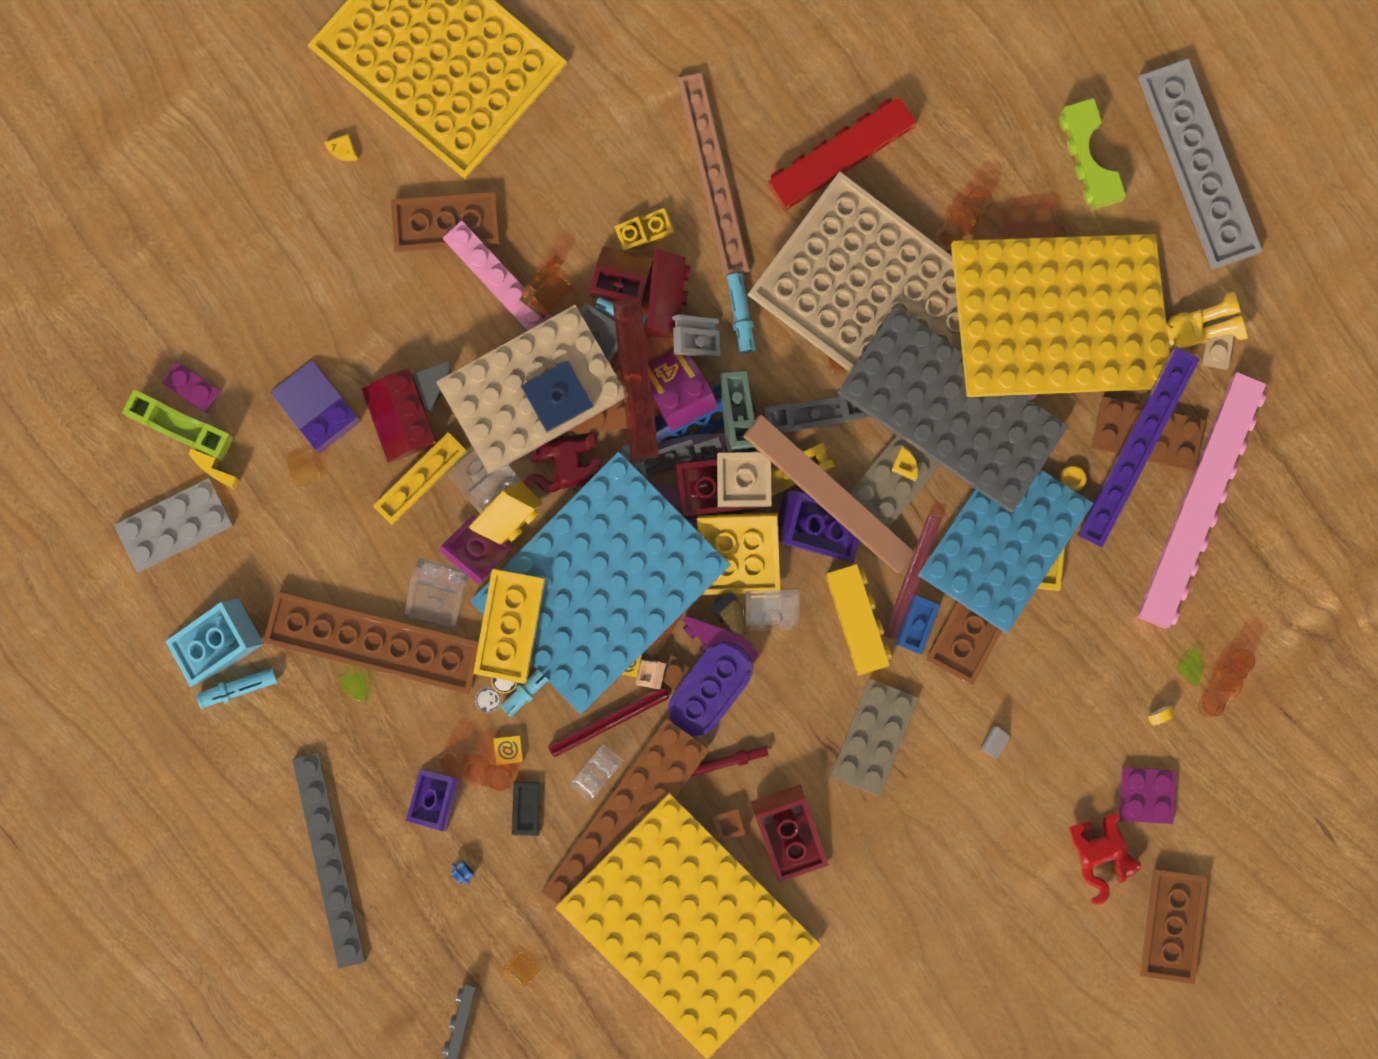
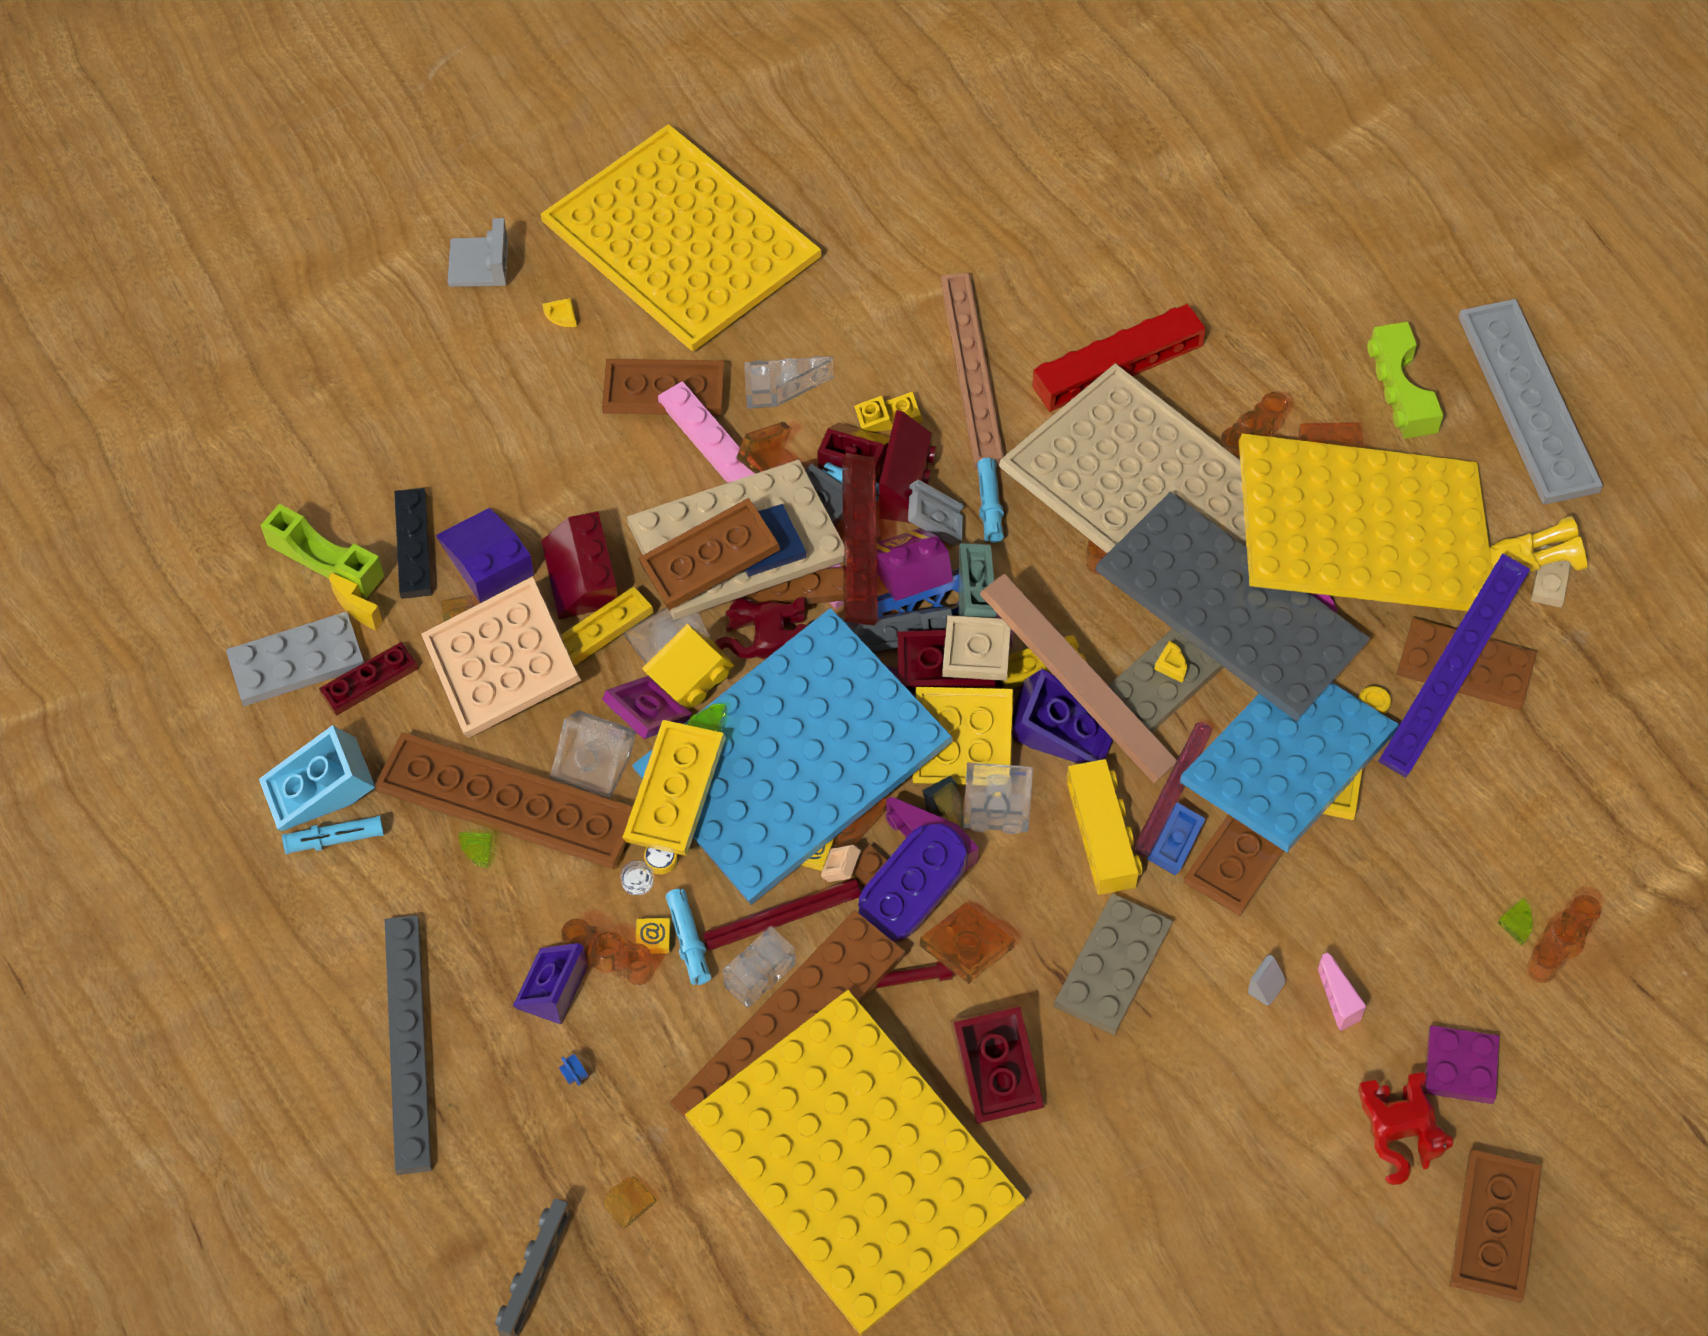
camera: 10 degrees right, 25 degrees down
(191, 387) = (346, 522): magenta plate -> none
(250, 526) = (357, 686): none -> dark red tile
(252, 402) = (413, 543): none -> black plate
(259, 99) = (480, 259): none -> light grey bracket
(347, 514) = (500, 657): none -> light nougat plate
(427, 384) = (619, 542): dark grey slope -> none
(512, 422) = (709, 554): none -> dark orange plate
(524, 693) = (682, 871): medium azure pin -> none
(526, 808) = (665, 1005): pearl dark grey tile -> none
(529, 563) = (710, 718): none -> clear neon green tile
(538, 754) = (691, 949): none -> medium azure pin
(545, 208) = (782, 380): none -> clear slope
(728, 825) = (920, 1045): dark orange plate -> none
(758, 735) = (967, 943): none -> clear orange plate
(812, 414) = (1081, 608): dark grey slope -> none
(1055, 754) = (1342, 996): none -> bright pink slope
(1161, 715) = (1480, 968): yellow tile -> none
(1201, 501) = (1529, 739): bright pink brick -> none

